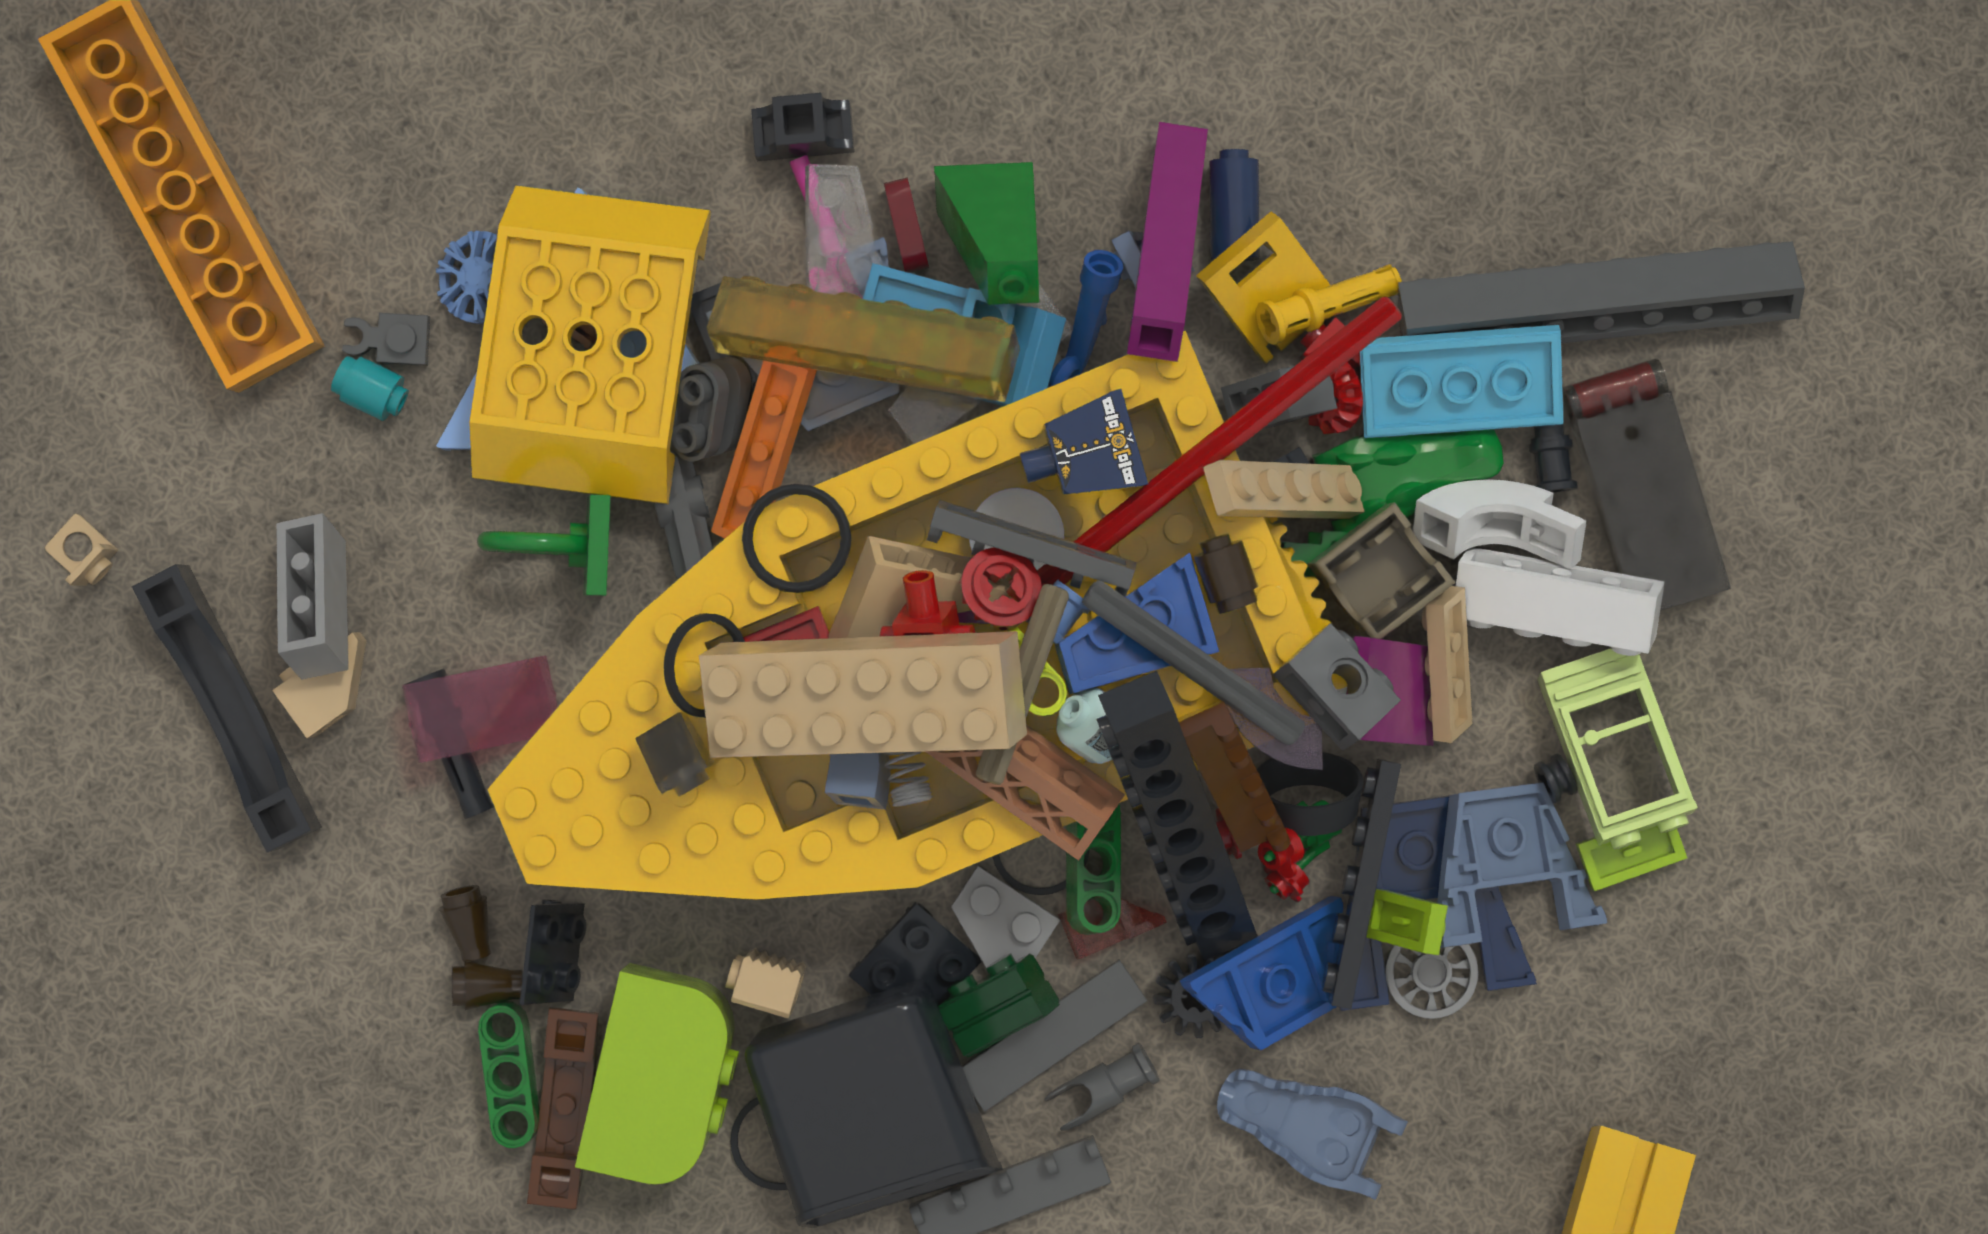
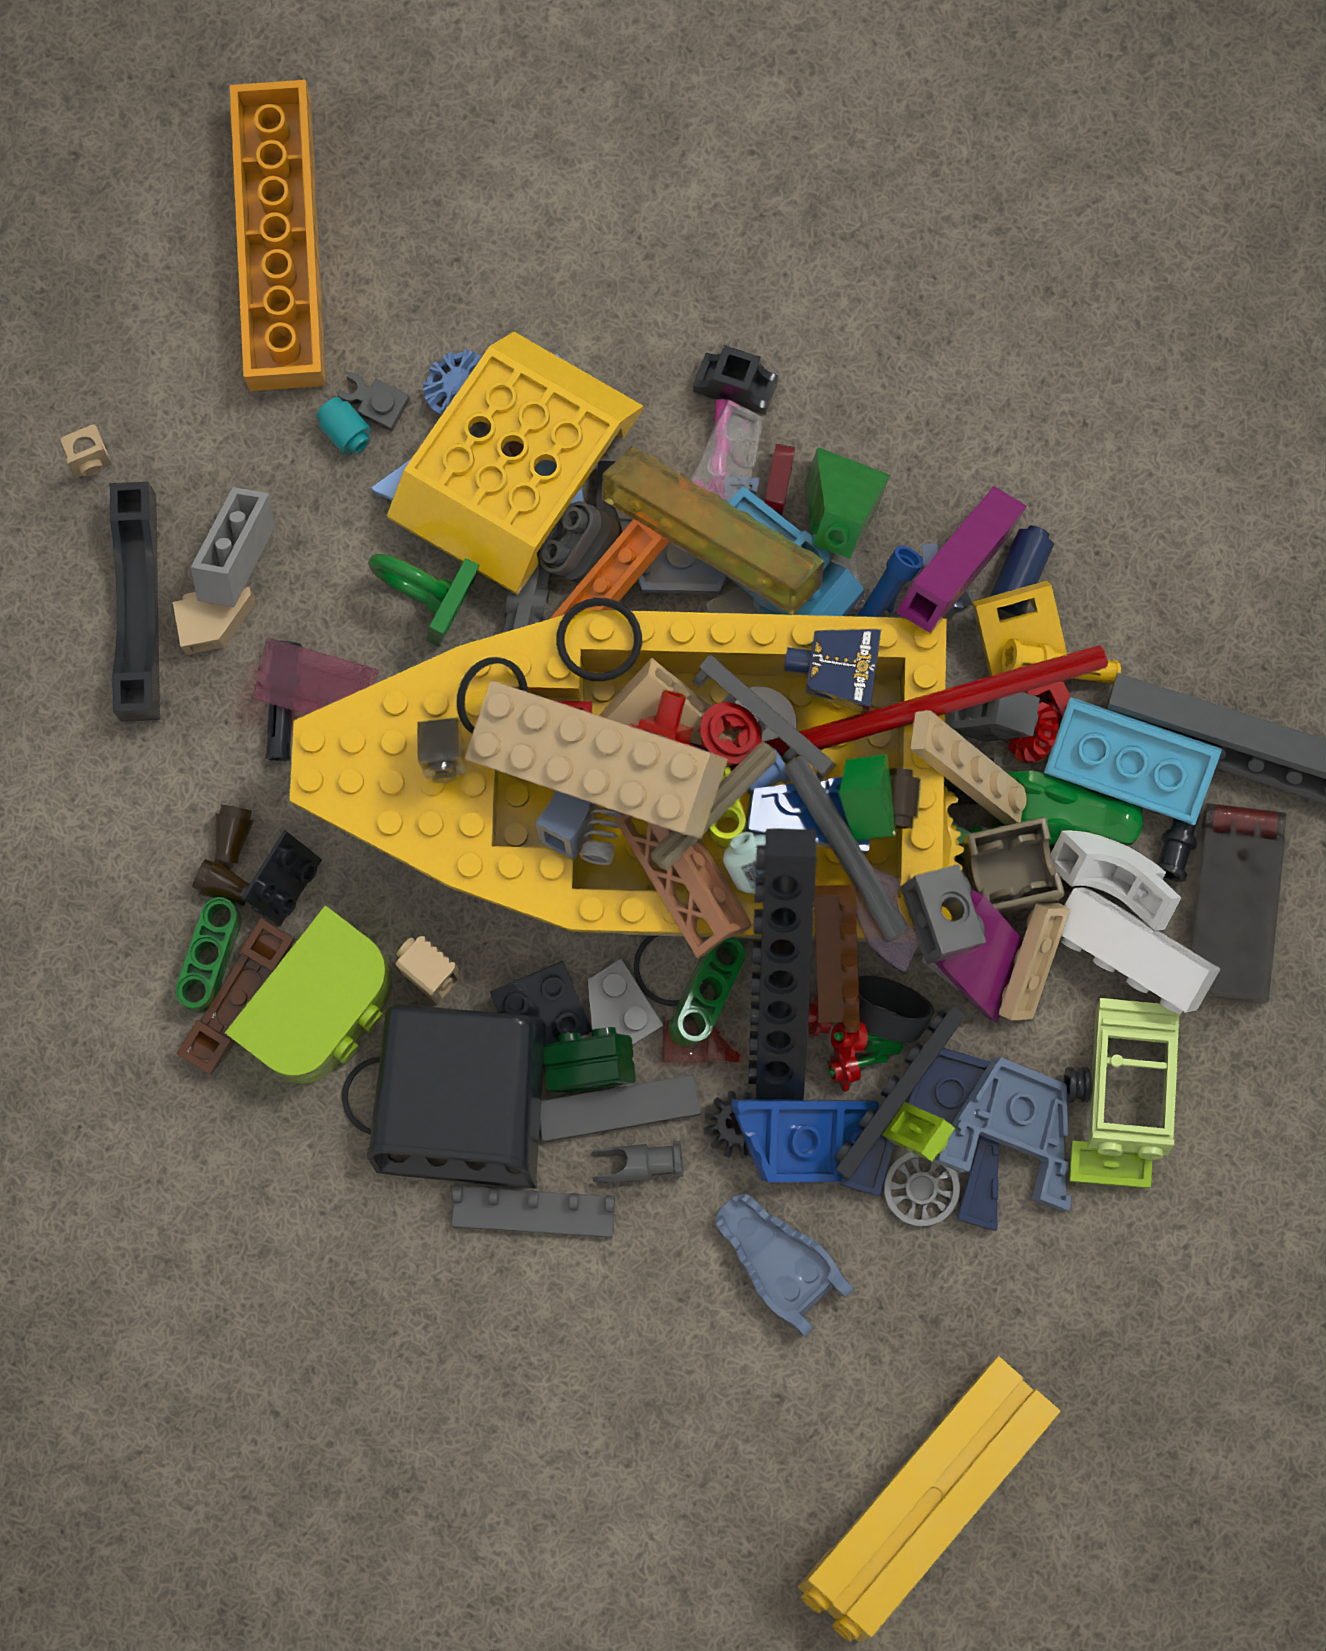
camera: 30 degrees right, 10 degrees down
(1192, 592) = (868, 797): none -> green slope

